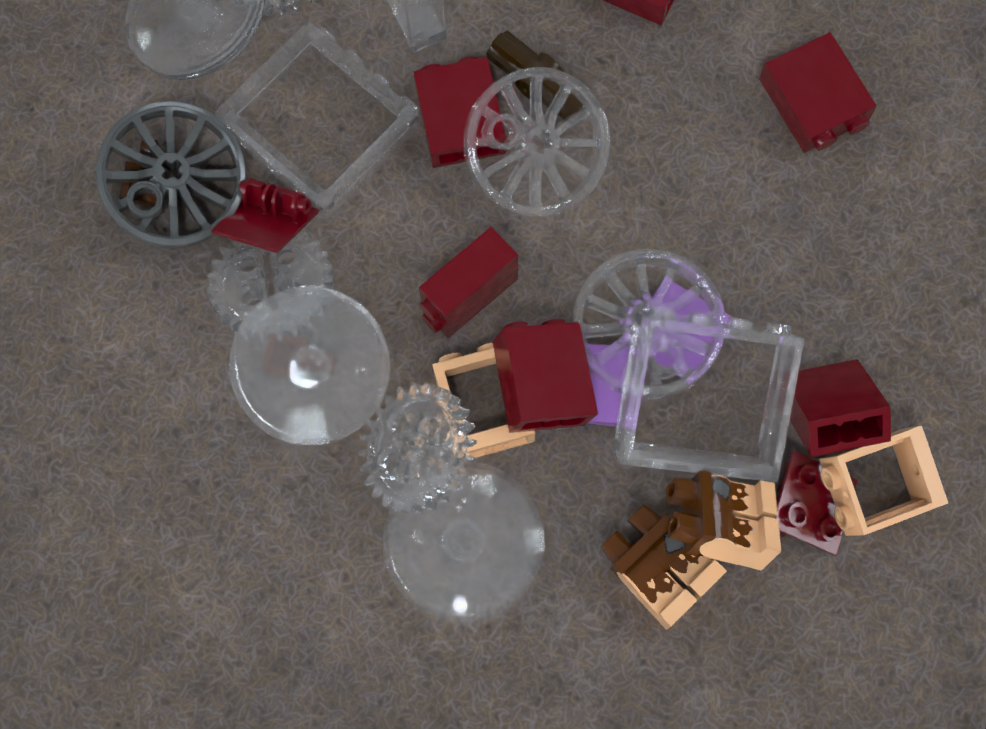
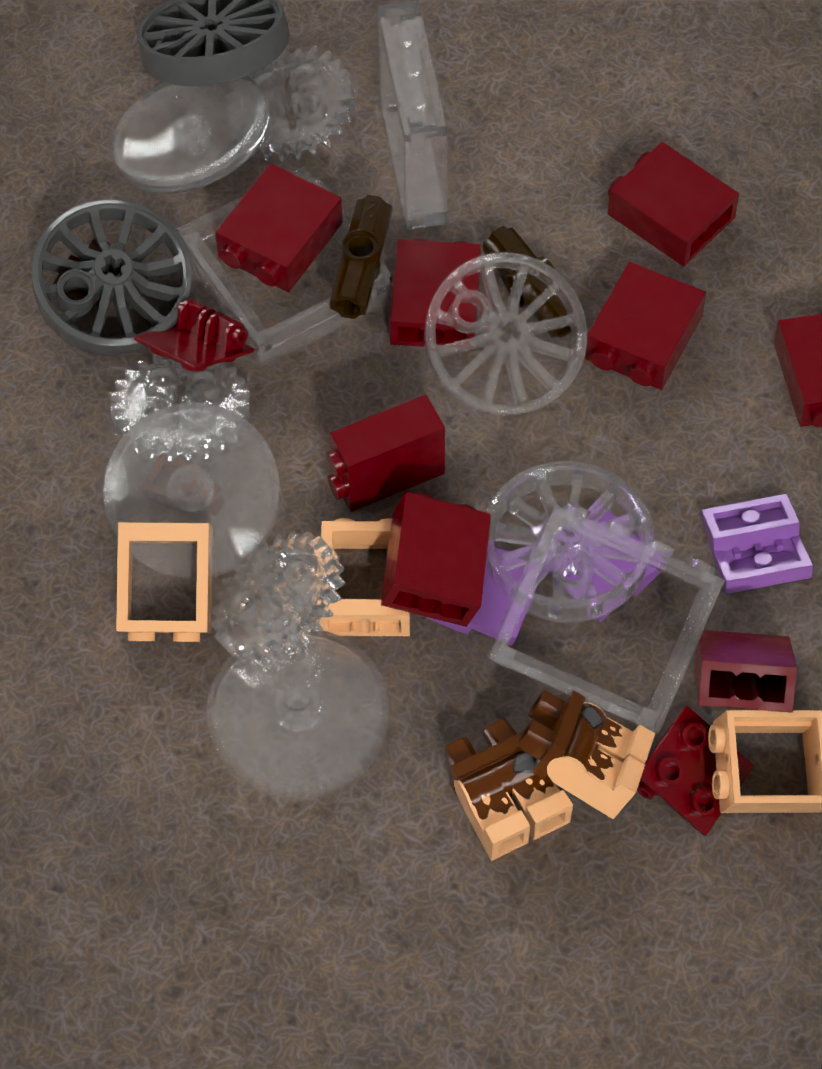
camera: 15 degrees right, 15 degrees down
(301, 420) = (164, 533): none -> light nougat window
(307, 92) = (279, 228): none -> dark red brick
(389, 120) = (361, 257): none -> dark brown piece
(649, 95) = (645, 326): none -> dark red brick
(801, 274) = (756, 543): none -> medium lavender slope

